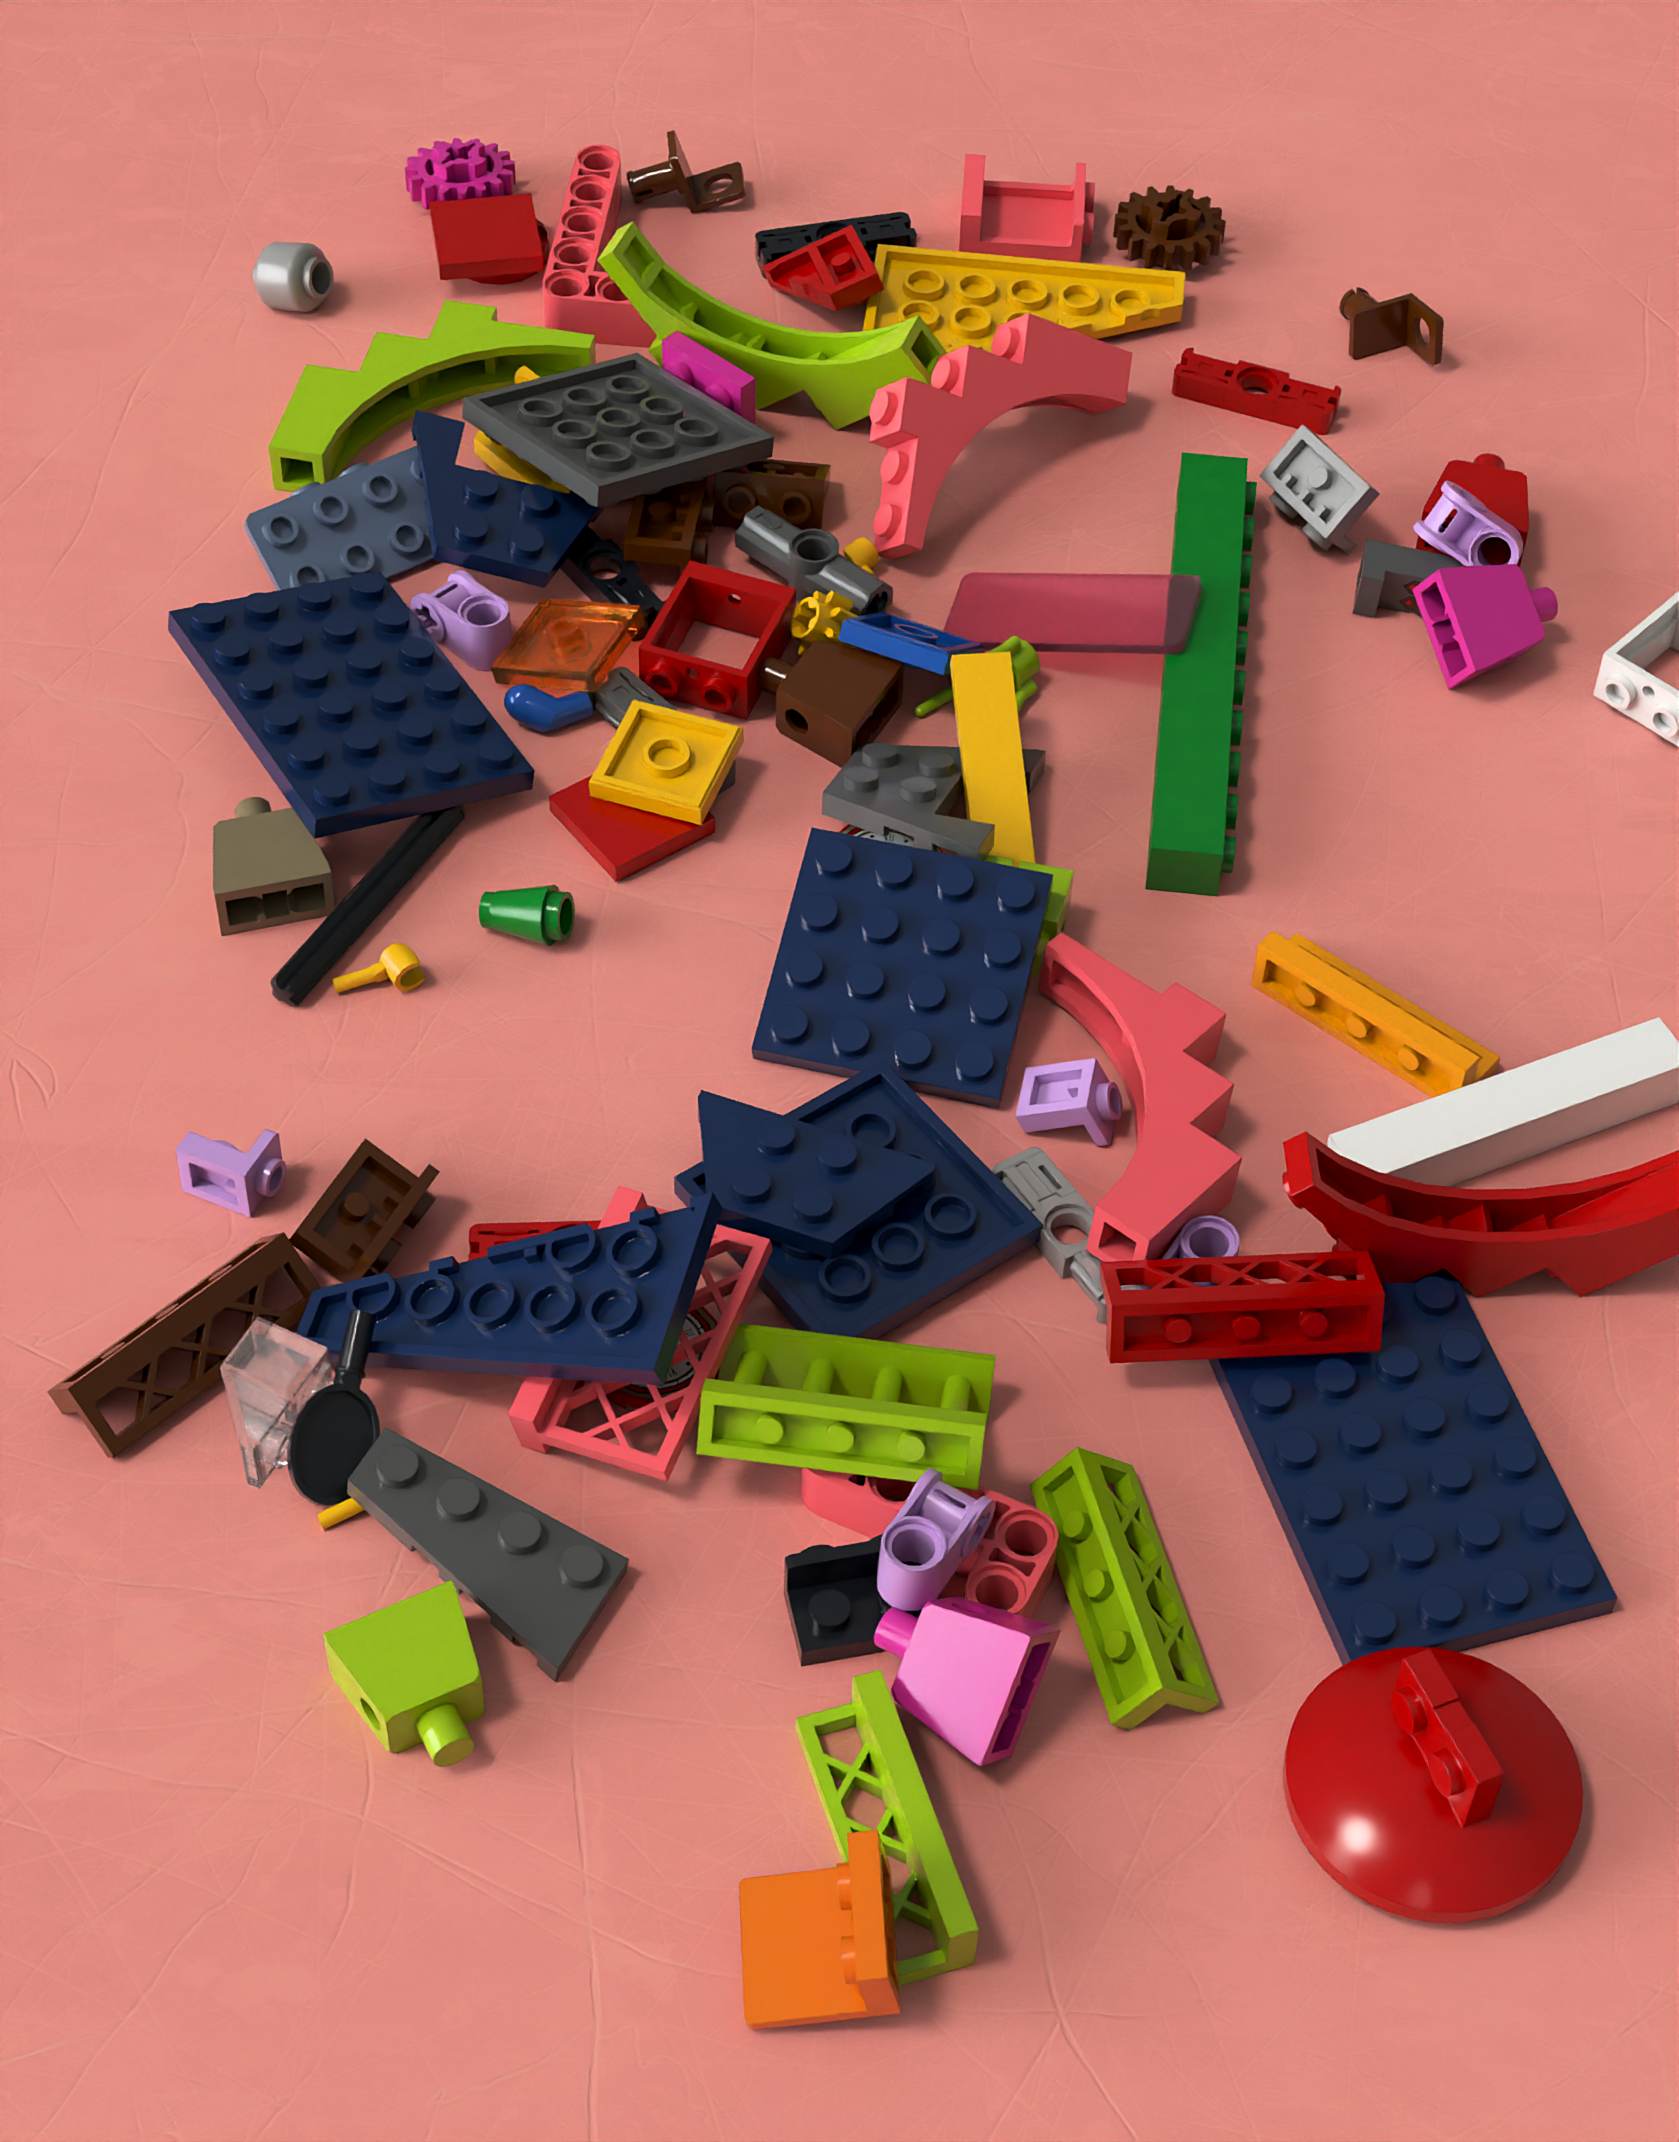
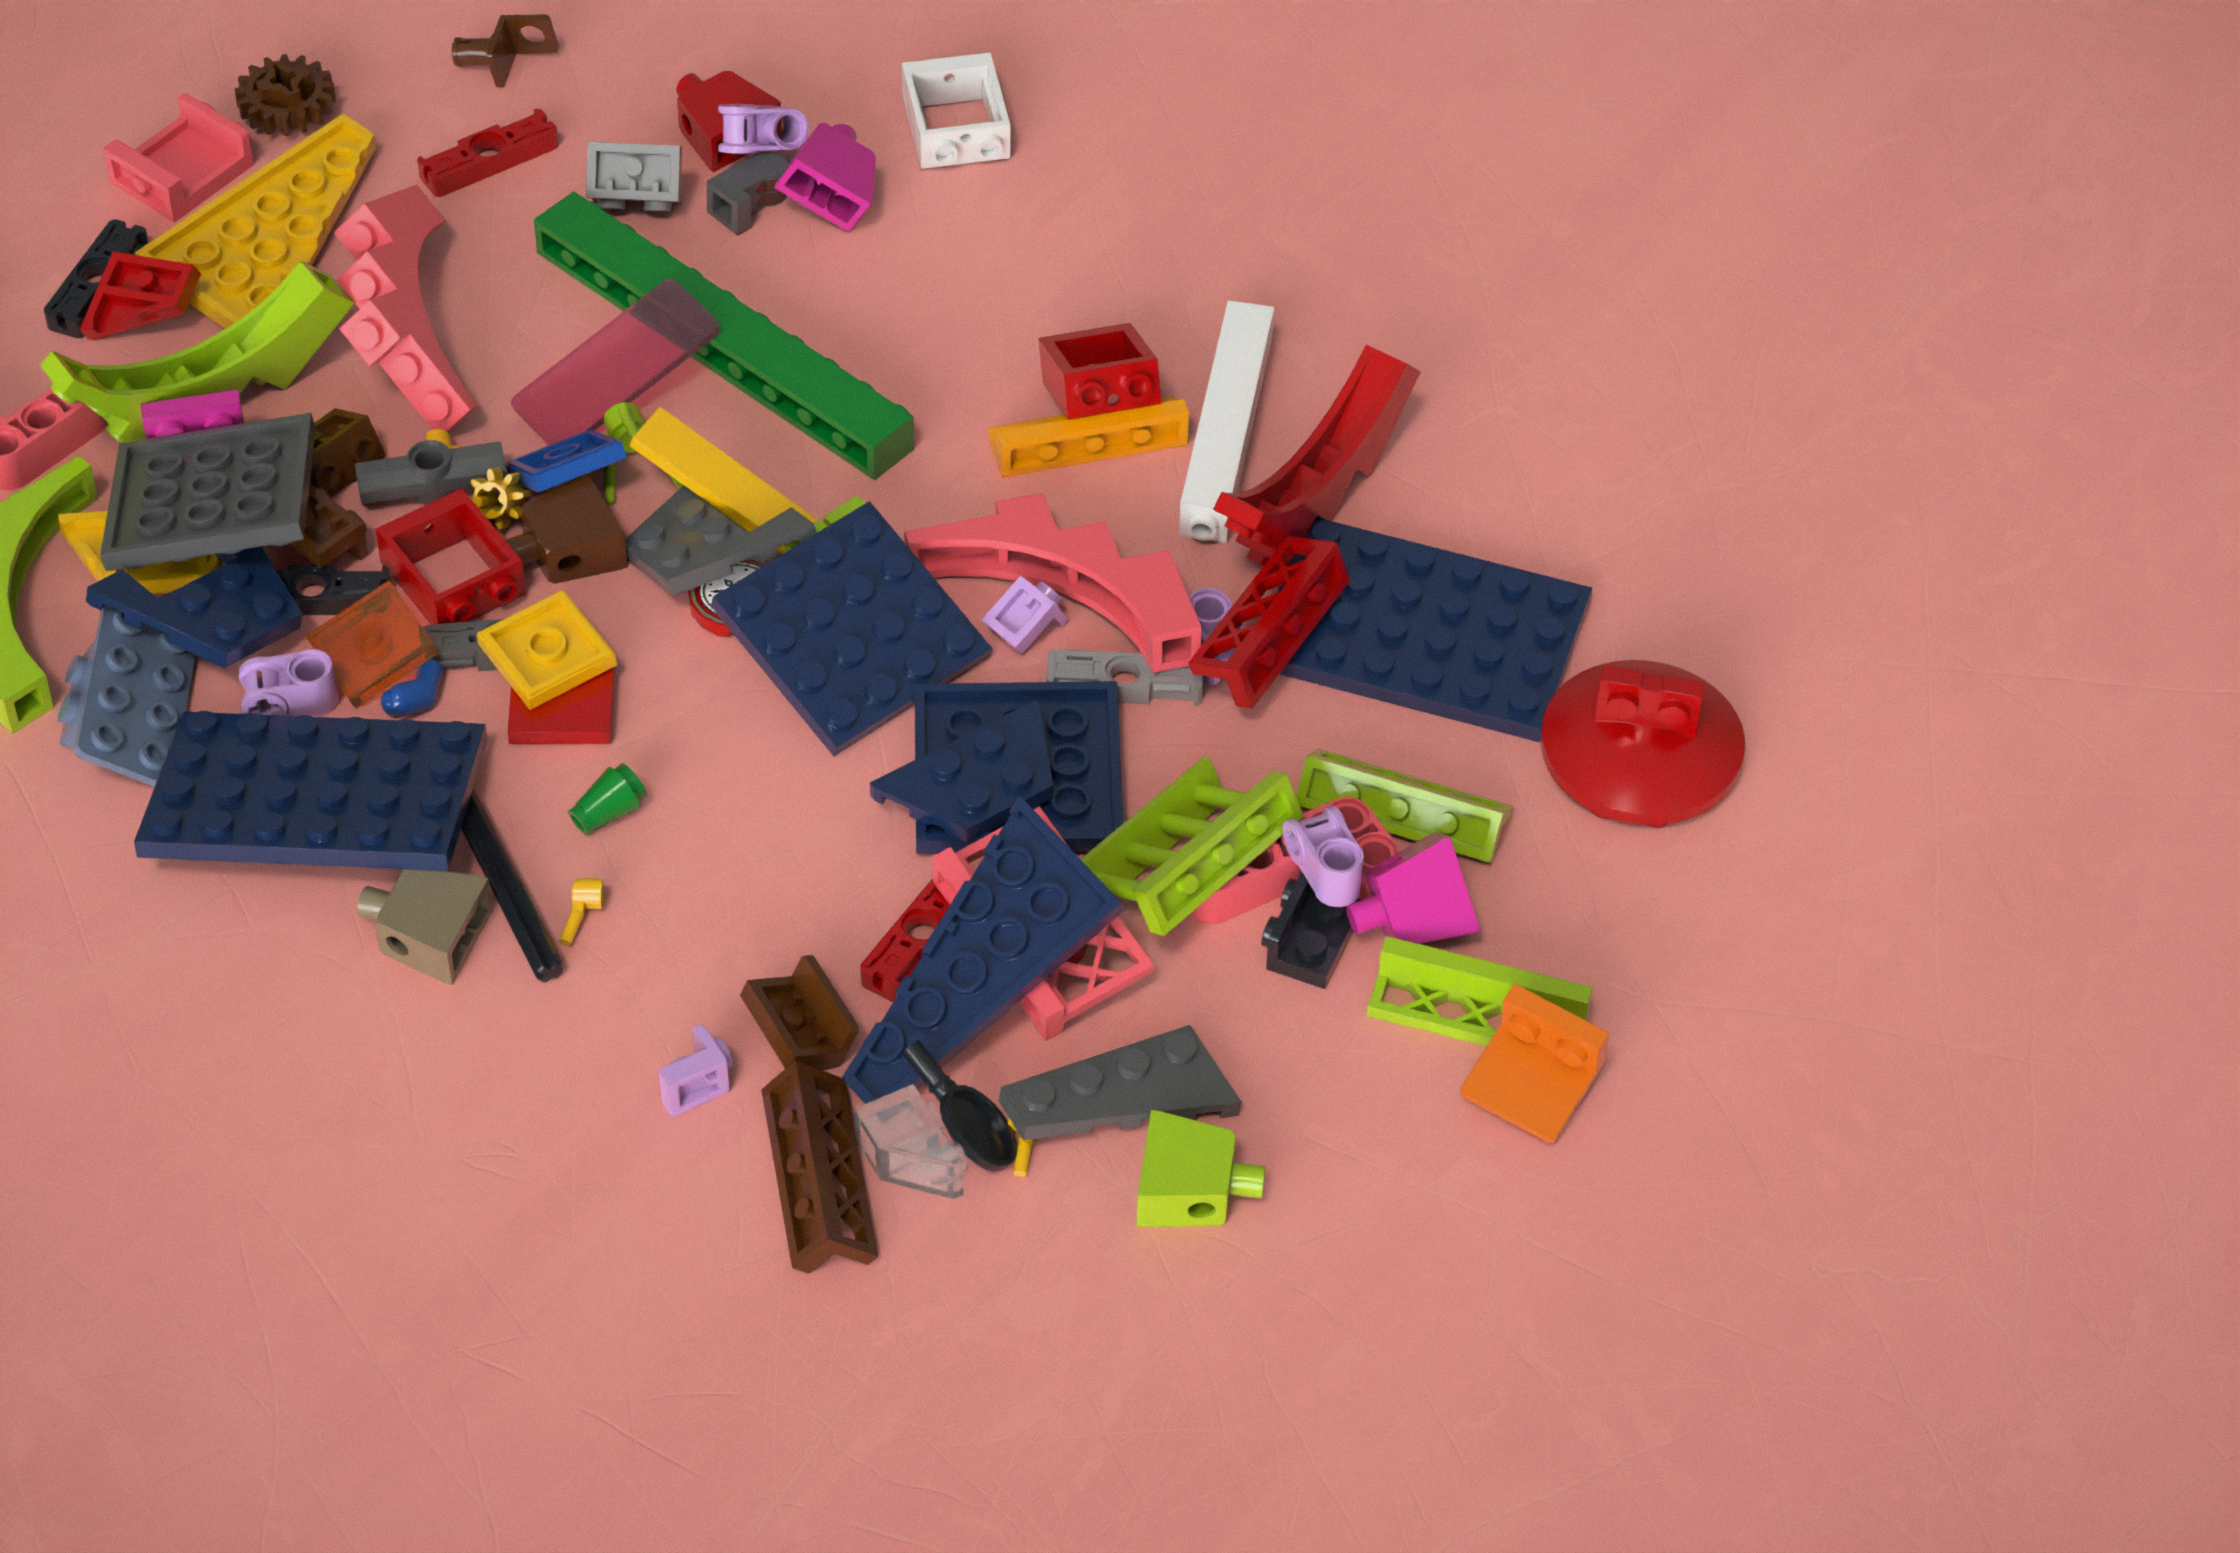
camera: 55 degrees left, 0 degrees up
(1426, 955) = (1120, 368): none -> red window

